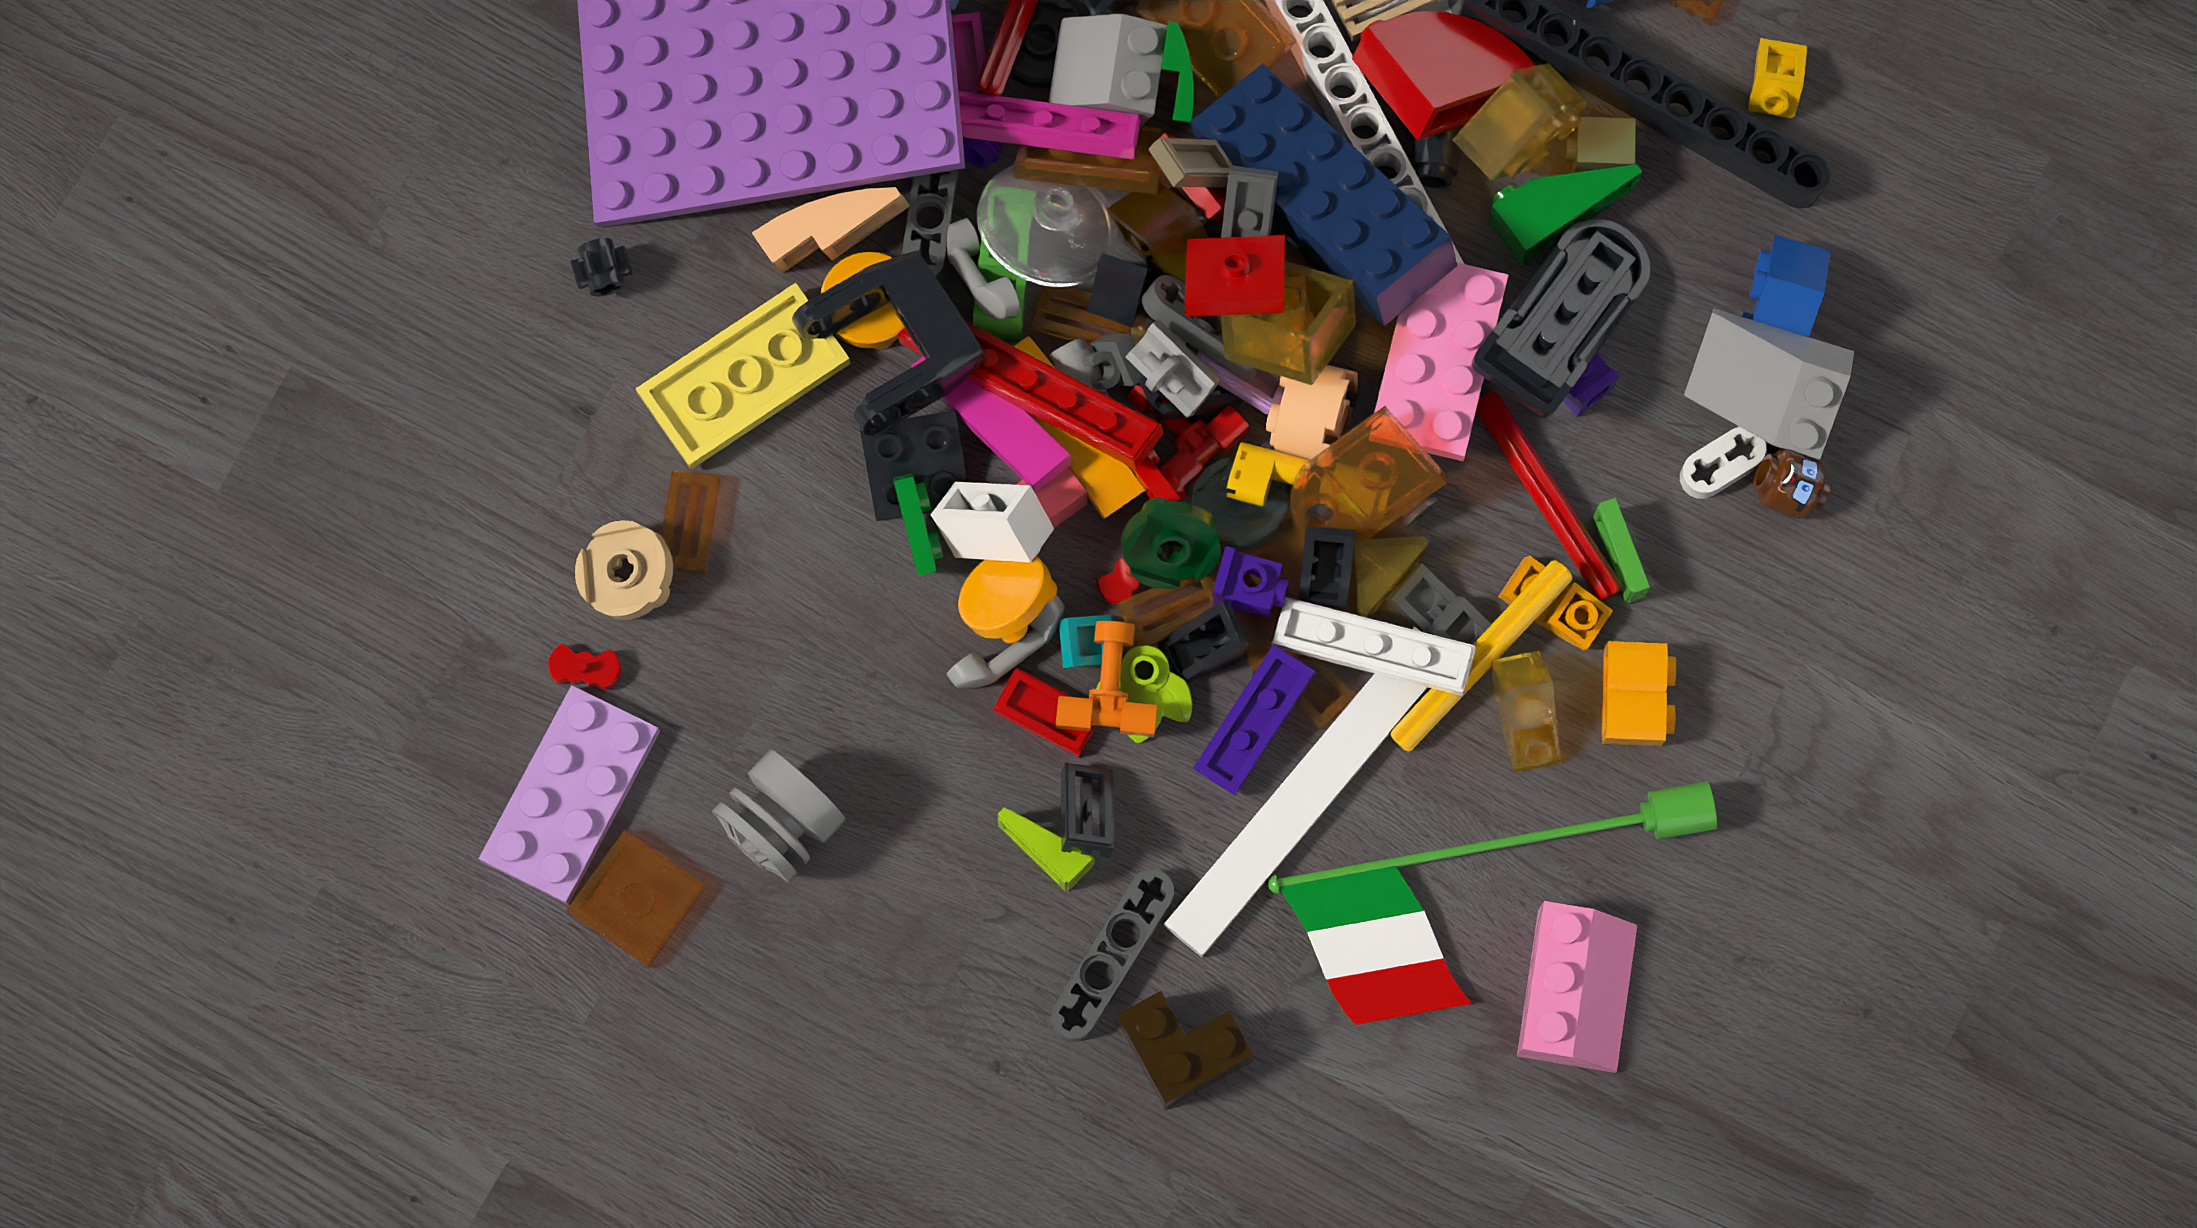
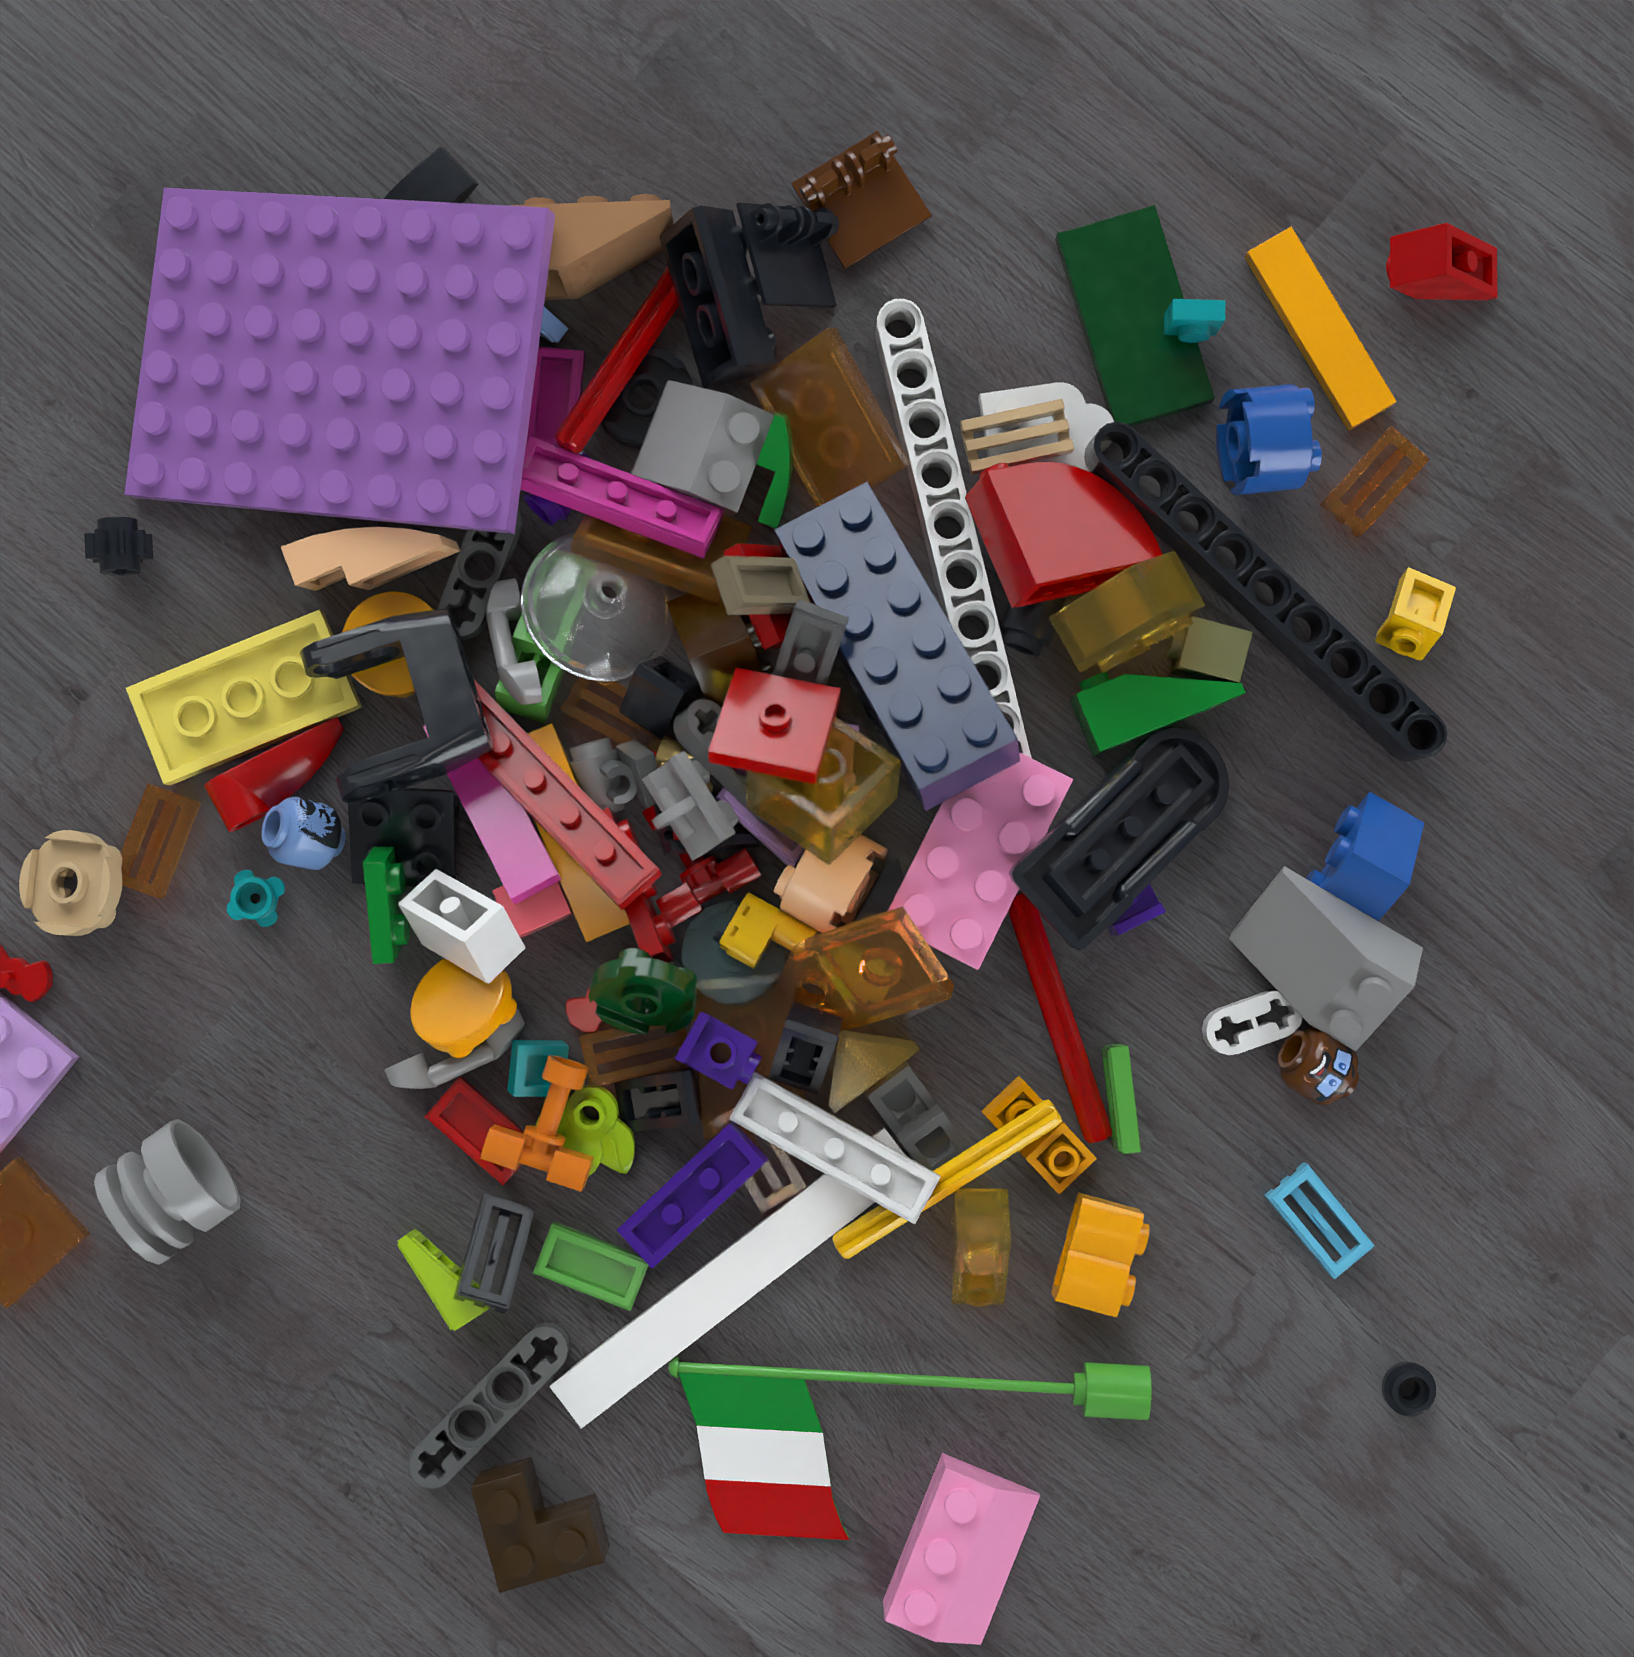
camera: 10 degrees right, 10 degrees up
(778, 444) = (264, 781): none -> red piece
(782, 541) = (241, 901): none -> teal plate
(827, 479) = (303, 833): none -> medium blue head
(1176, 811) = (591, 1266): none -> bright green tile
(1817, 638) = (1290, 1185): none -> medium azure tile
(1958, 743) = (1420, 1399): none -> black plate

